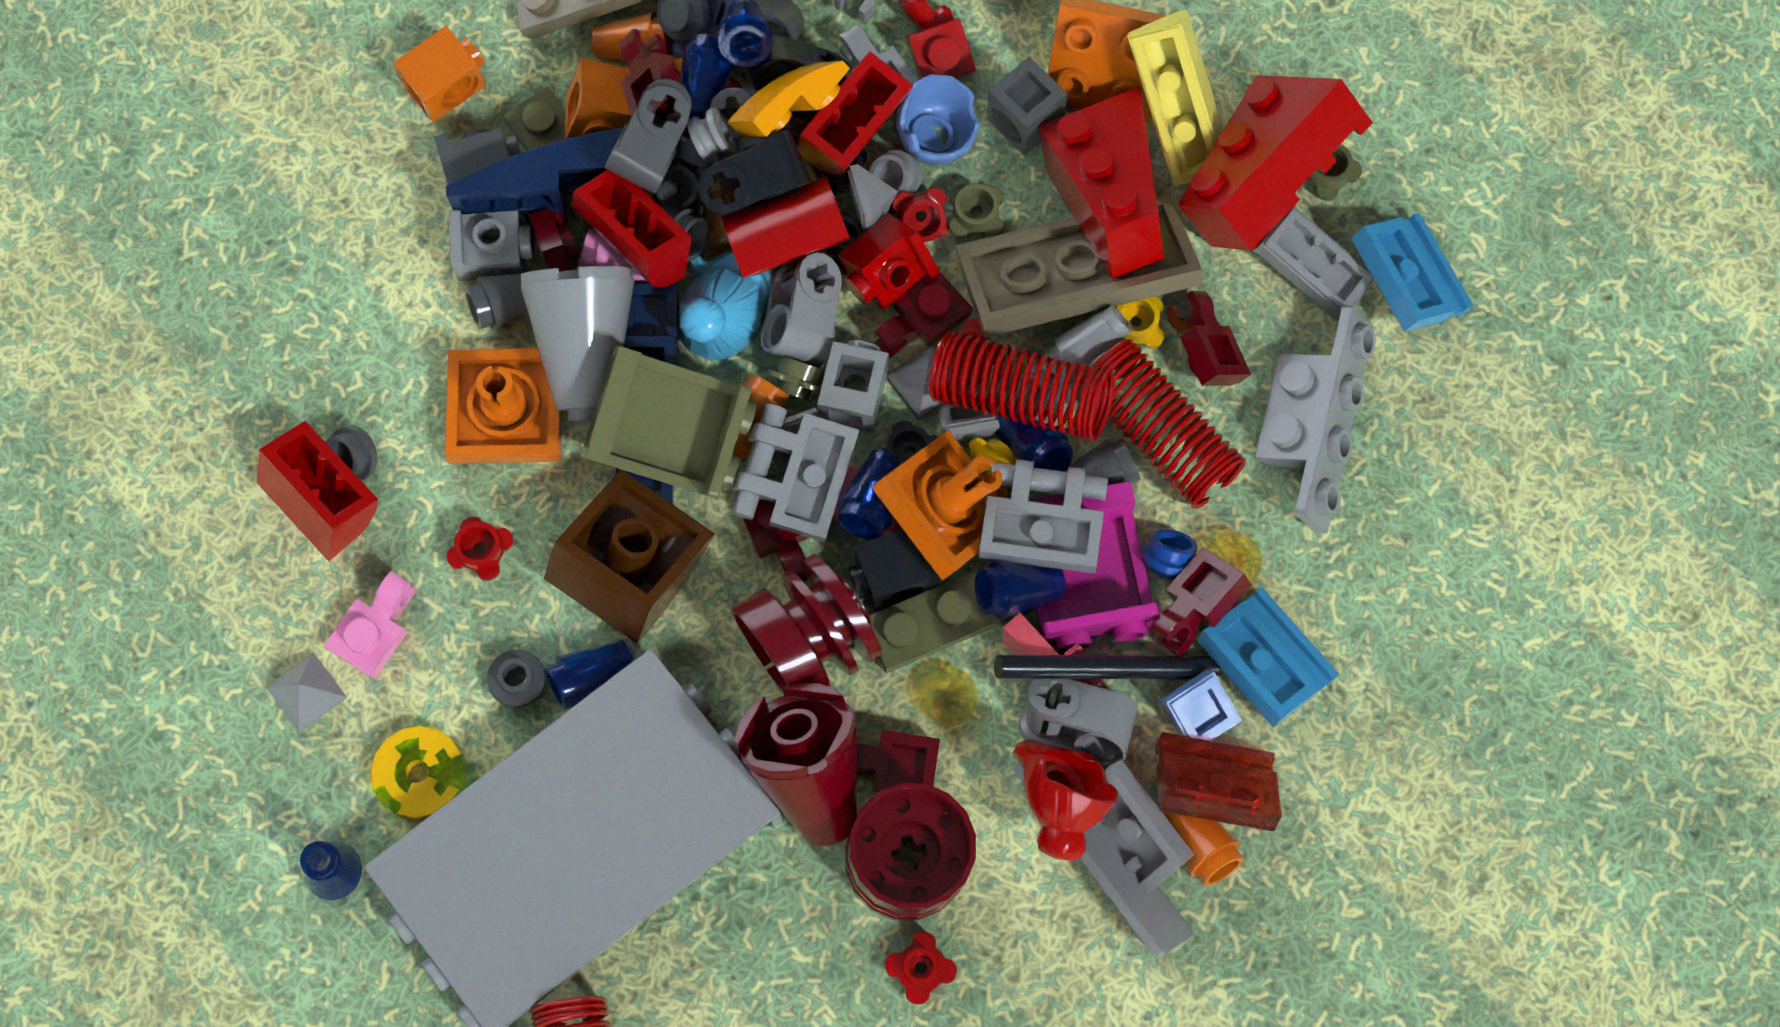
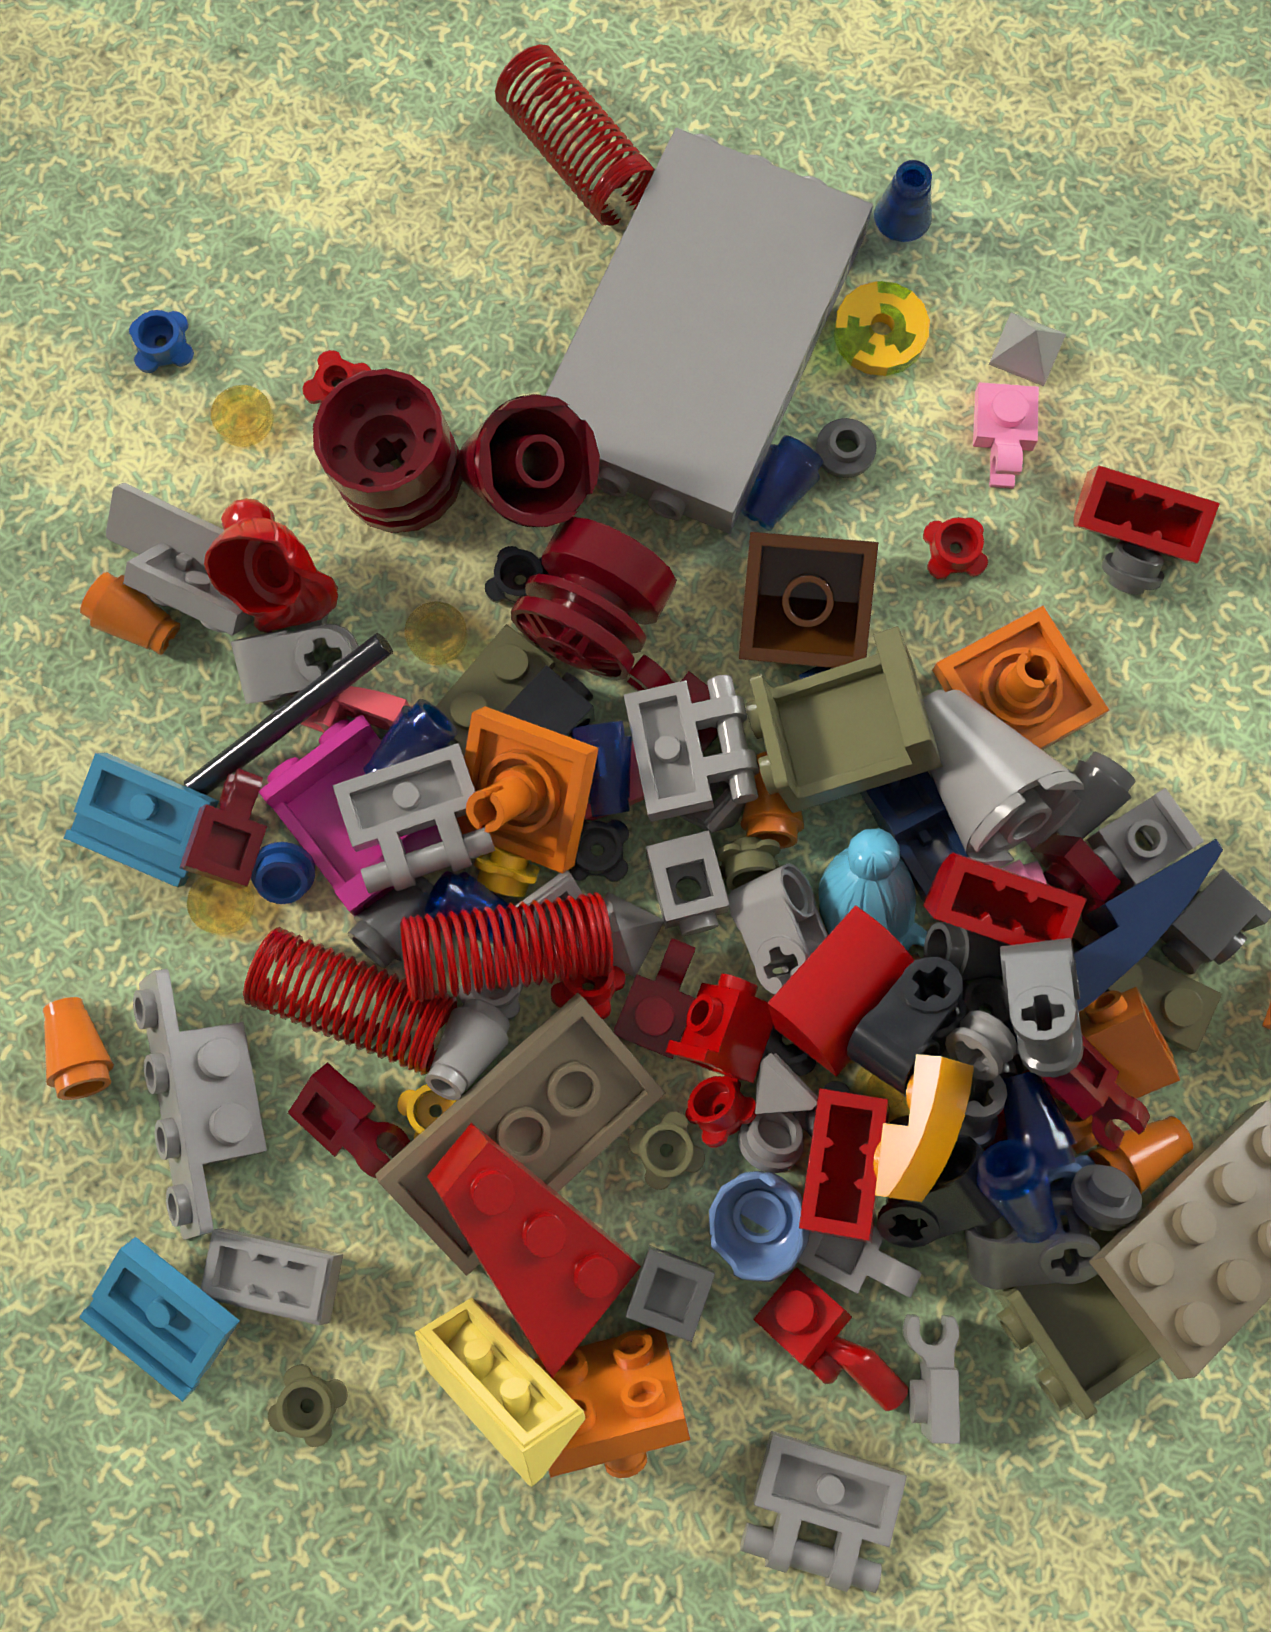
camera: 150 degrees right, 5 degrees up
(872, 707) = (509, 564): none -> black plate
(899, 759) = (447, 543): dark red plate -> none
(1020, 986) = (242, 415): none -> clear yellow tile
(1201, 707) = (185, 735): tile -> none
(1217, 782) = (132, 664): clear red plate -> none
(1266, 154) = (370, 1371): red wedge -> none
(1398, 498) = (74, 1051): none -> orange cone

